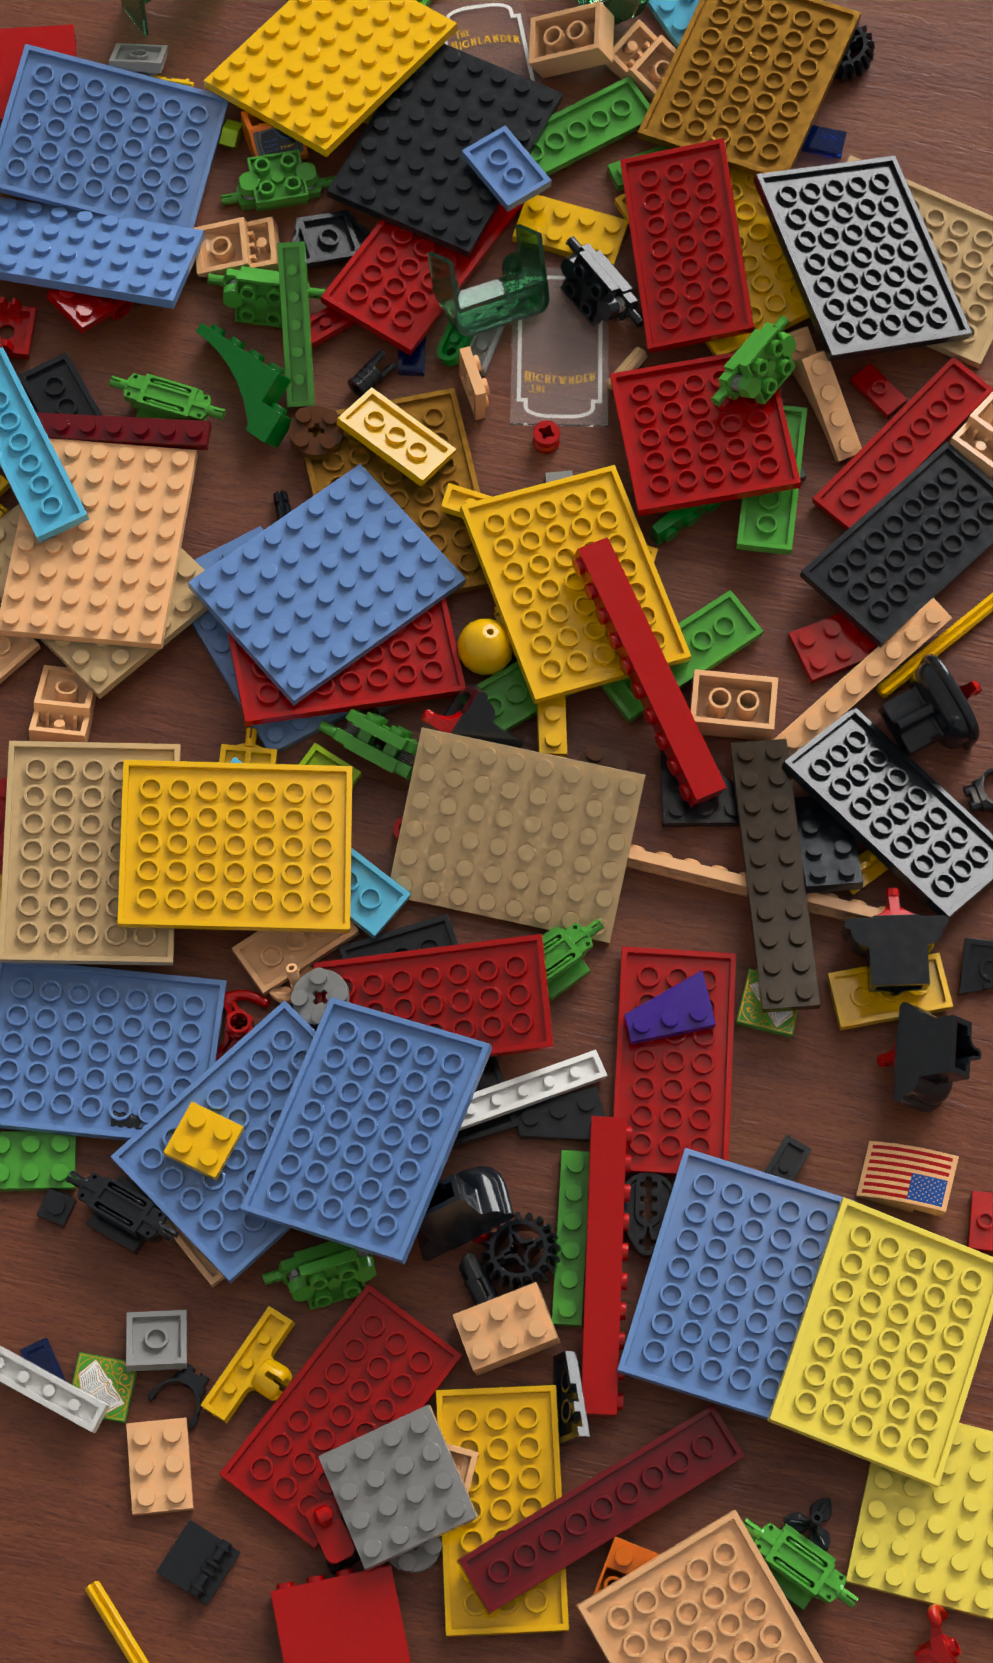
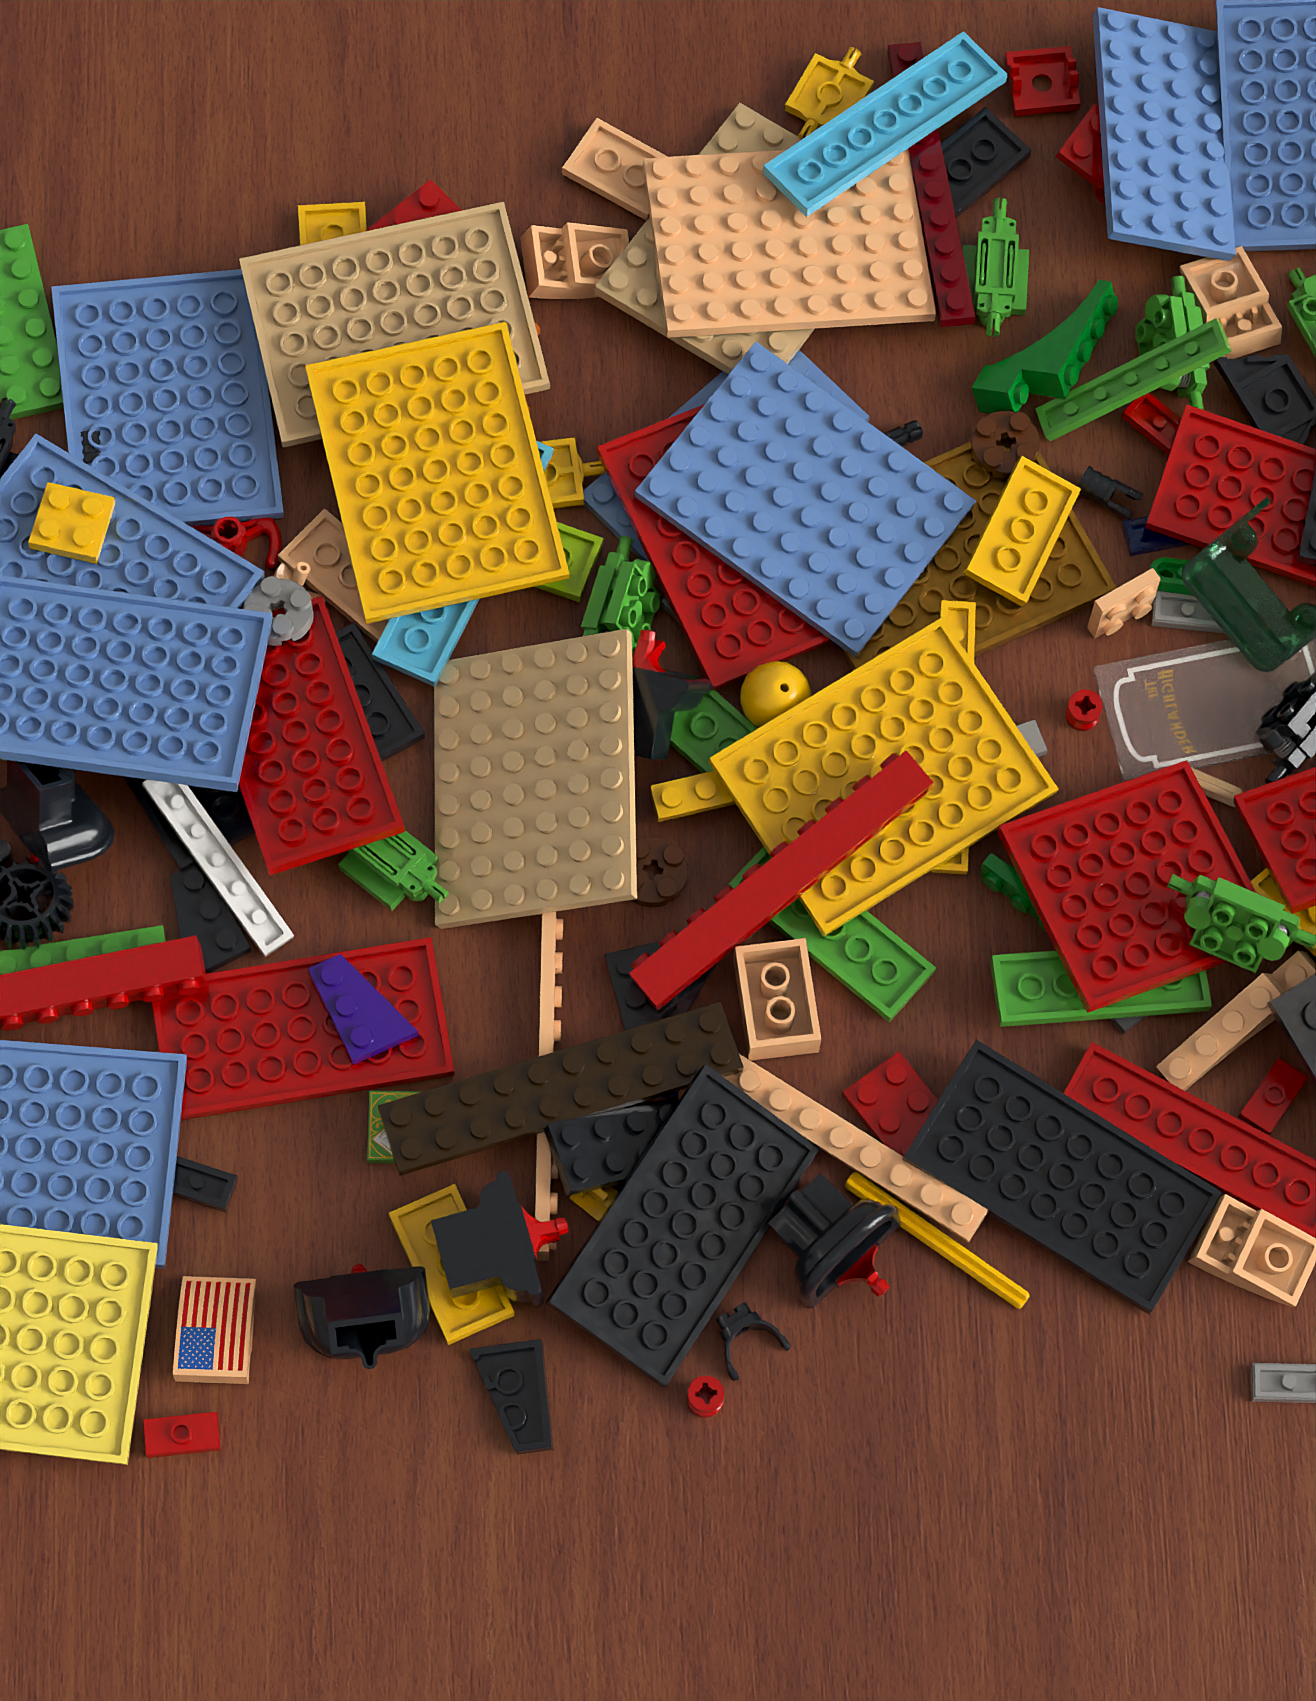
camera: 75 degrees right, 0 degrees up
(634, 1208) = (88, 1028): black piece -> none

